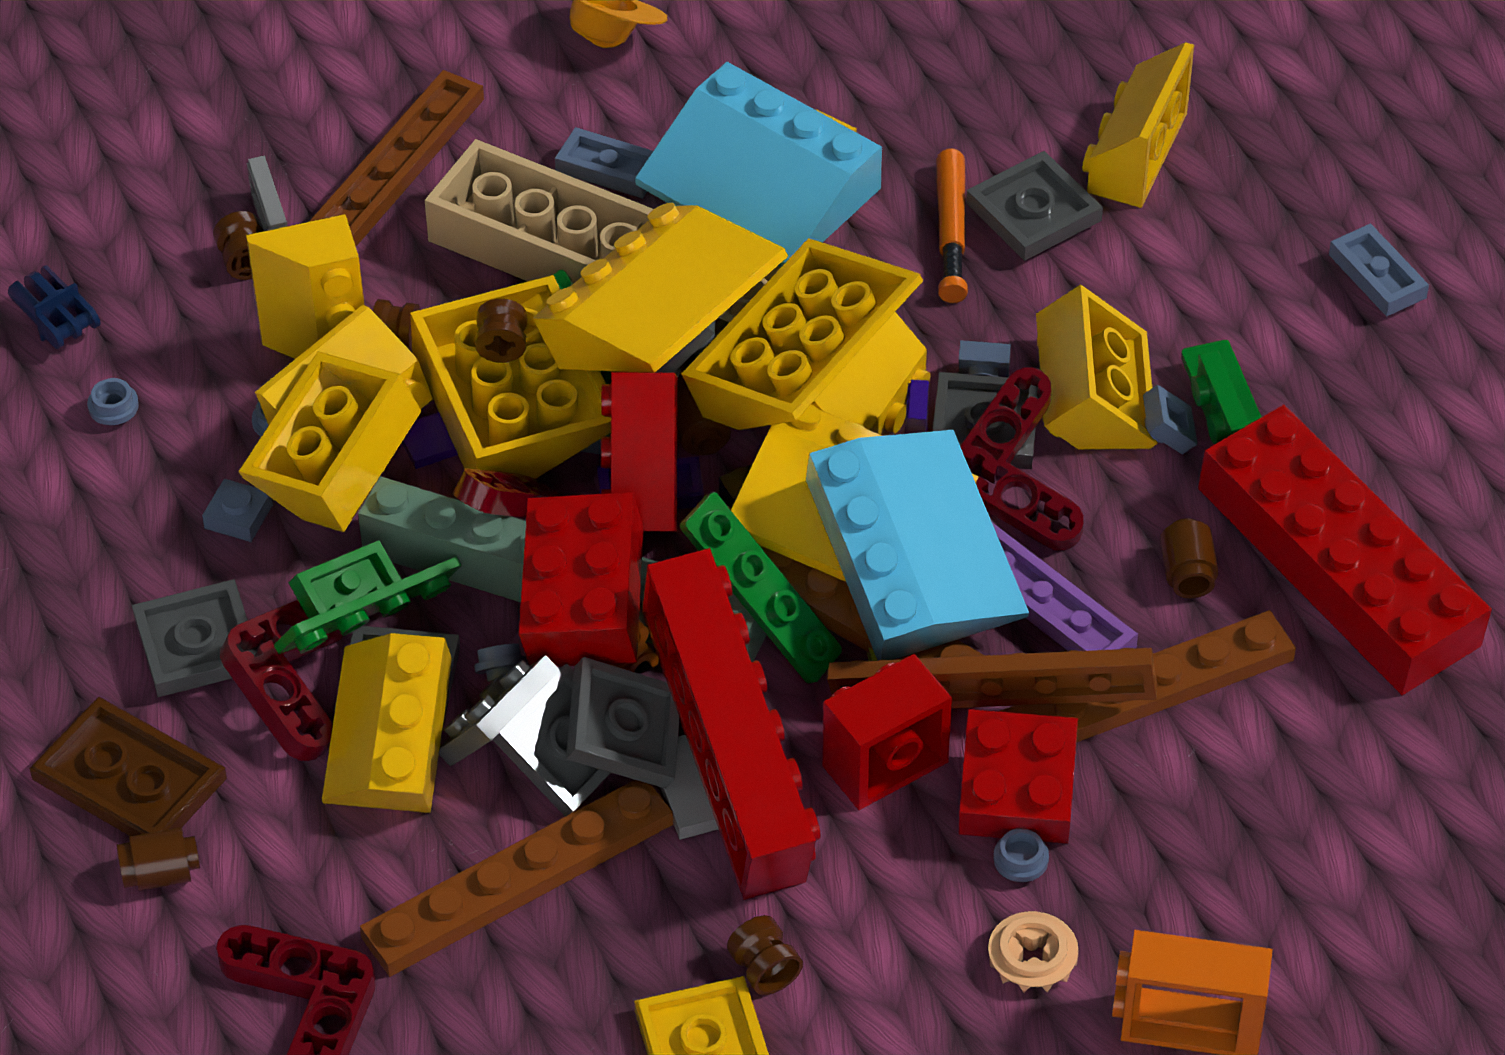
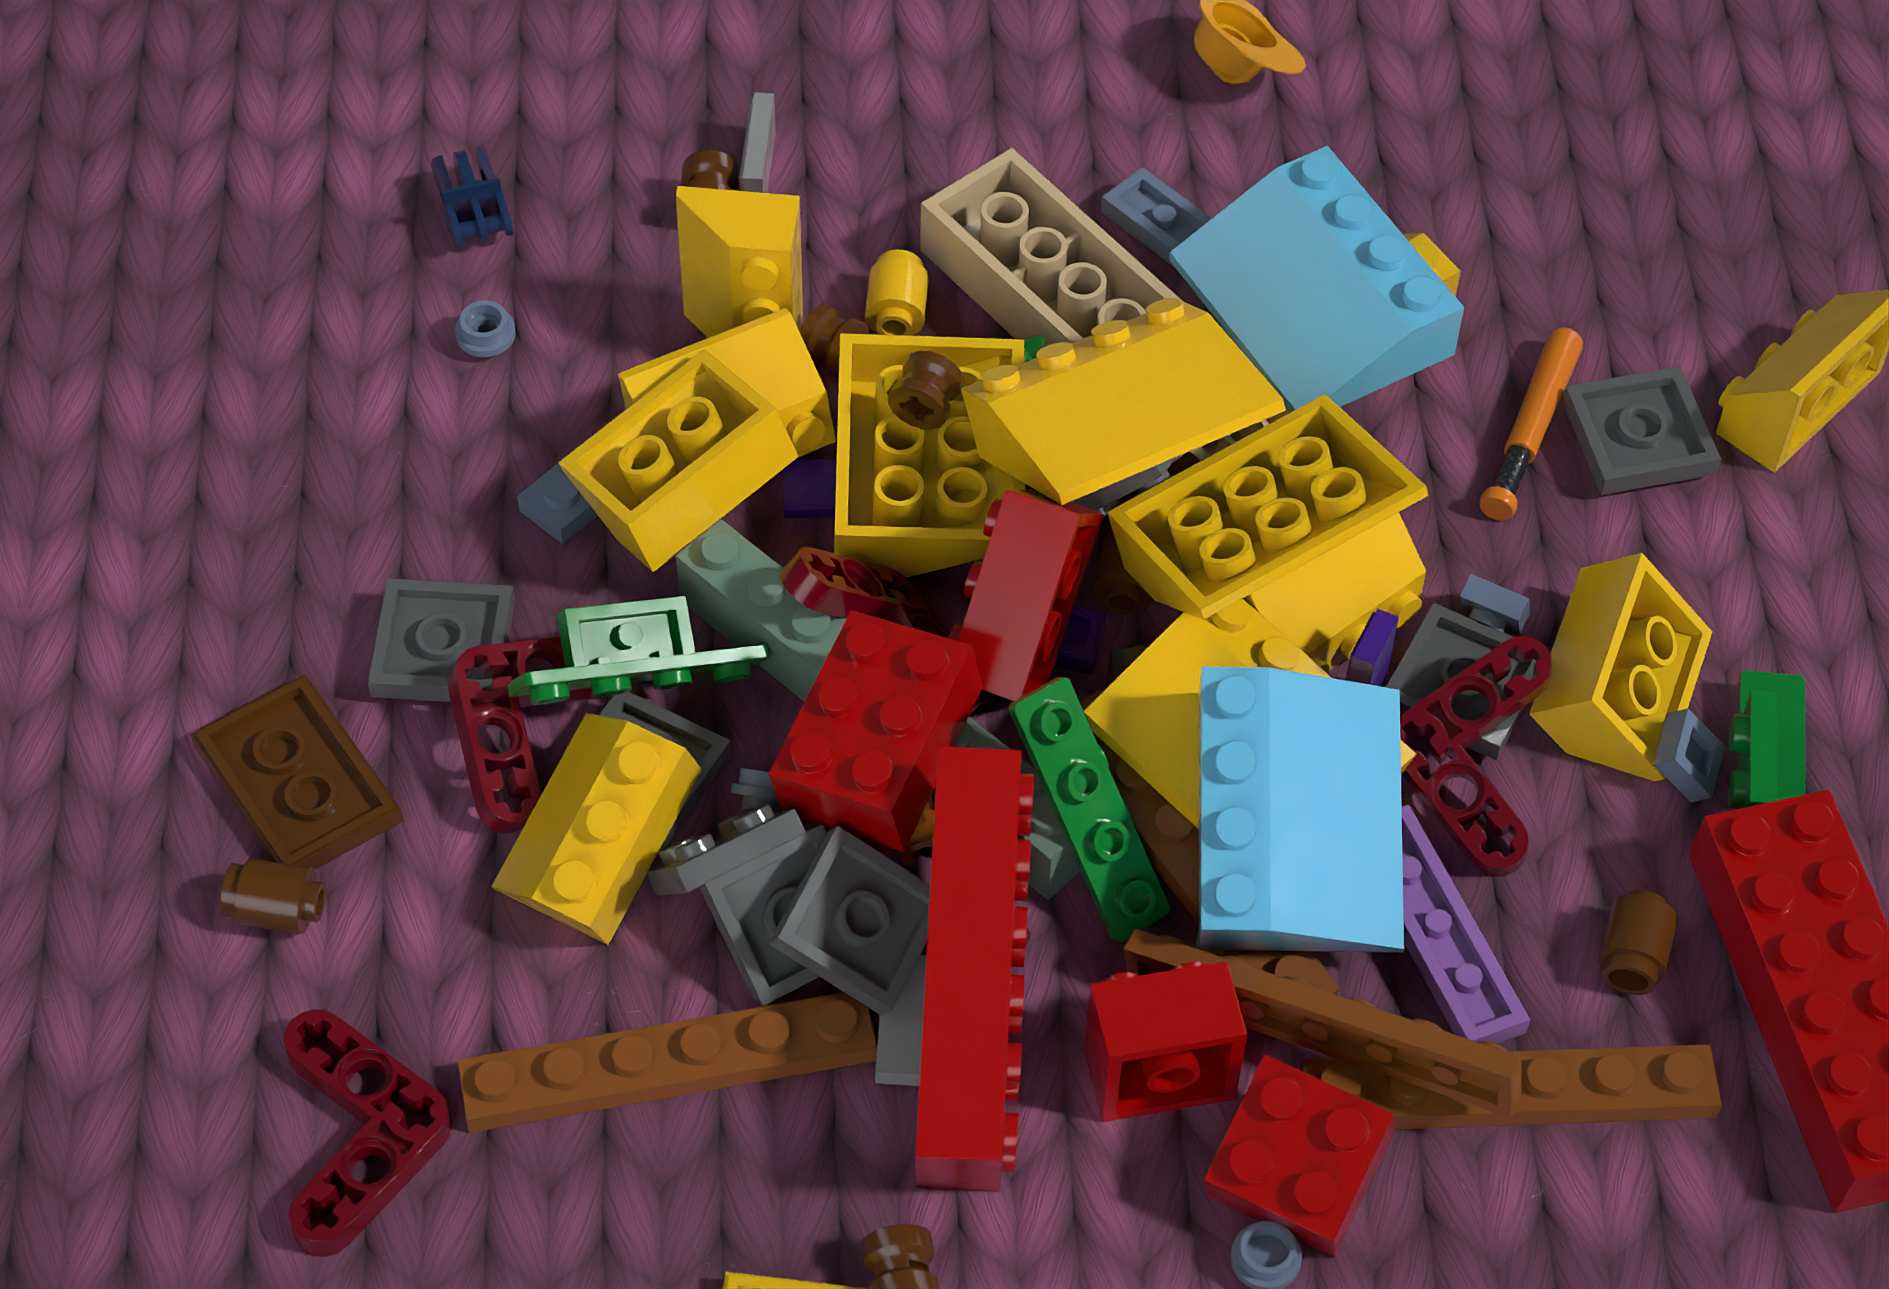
camera: 20 degrees right, 5 degrees up
(403, 153) = (921, 147): dark orange plate -> none
(428, 275) = (897, 294): none -> yellow brick

